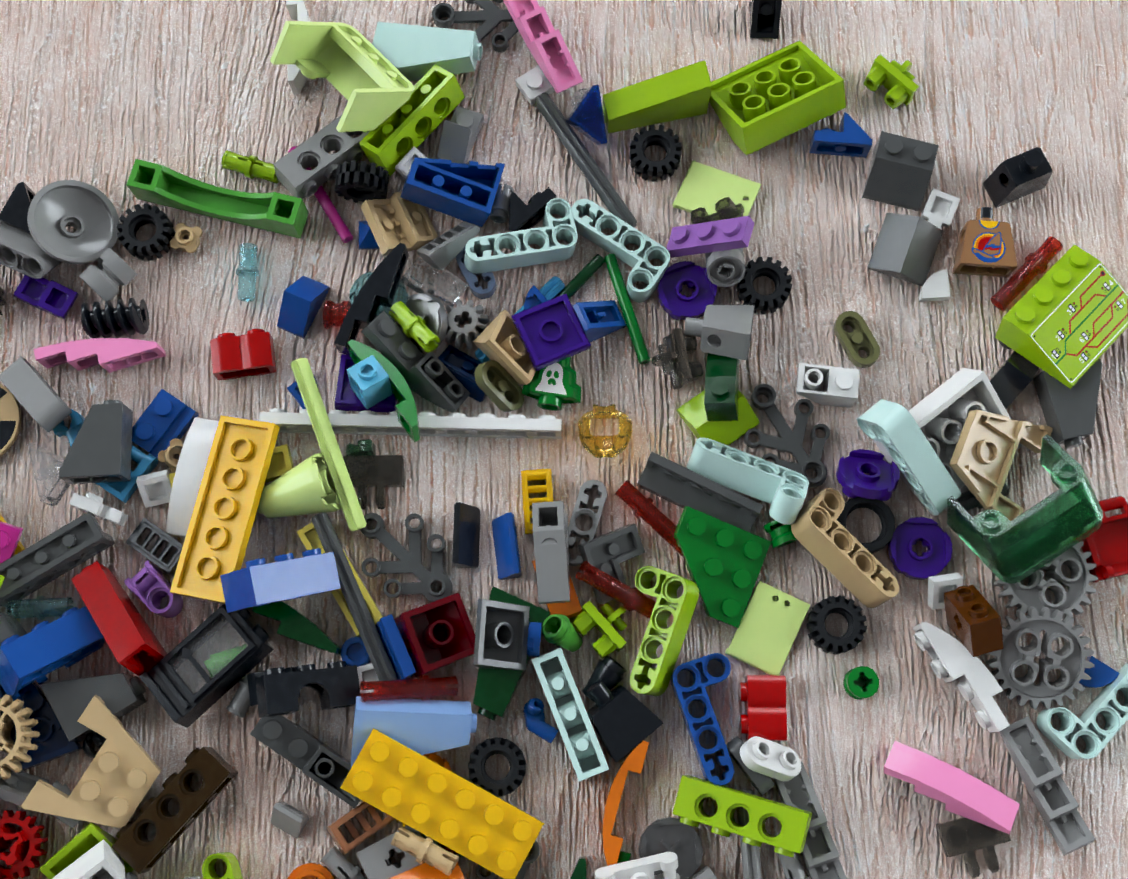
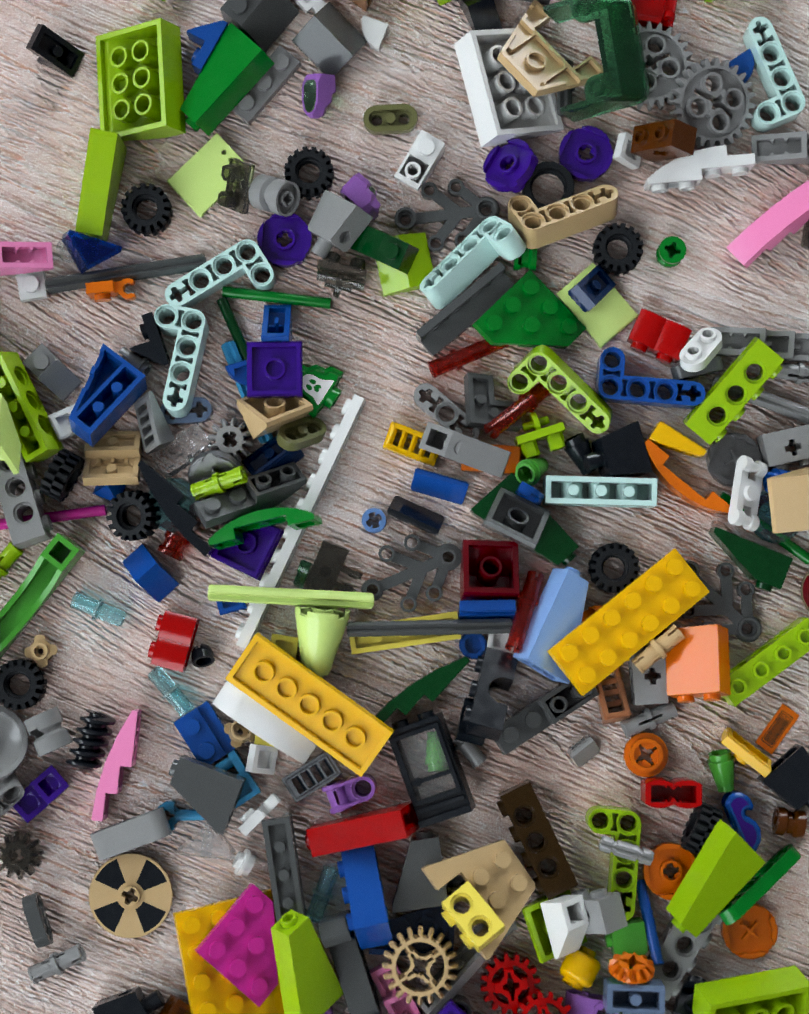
camera: 70 degrees left, 10 degrees up
(44, 515) = (243, 862): none -> white plate
(65, 772) = (478, 913): none -> light yellow brick
(192, 374) = (170, 691): none -> clear light blue axle
(239, 388) = (202, 656): none -> black hinge
(280, 580) = (395, 680): wedge -> none
(345, 253) = (119, 515): none -> black tyre
(369, 381) = (252, 540): medium azure brick -> none
(443, 487) = (382, 523): none -> medium blue bush
(536, 722) = (591, 522): blue arm -> none
(559, 148) = (104, 290): none -> orange plate
(605, 445) = (390, 366): clear yellow helmet -> none
(660, 767) = (671, 439): none -> yellow slope
(710, 236) = (252, 198): medium lavender plate -> none
(765, 344) = (361, 193): none -> medium lavender rock
(781, 613) = (592, 288): none -> dark blue slope
(814, 167) = (225, 80): none -> green slope
(830, 208) = (267, 86): none -> light grey plate
(846, 260) = (317, 94): none -> medium lavender rock
(911, 452) = (510, 123): light aqua beam -> none

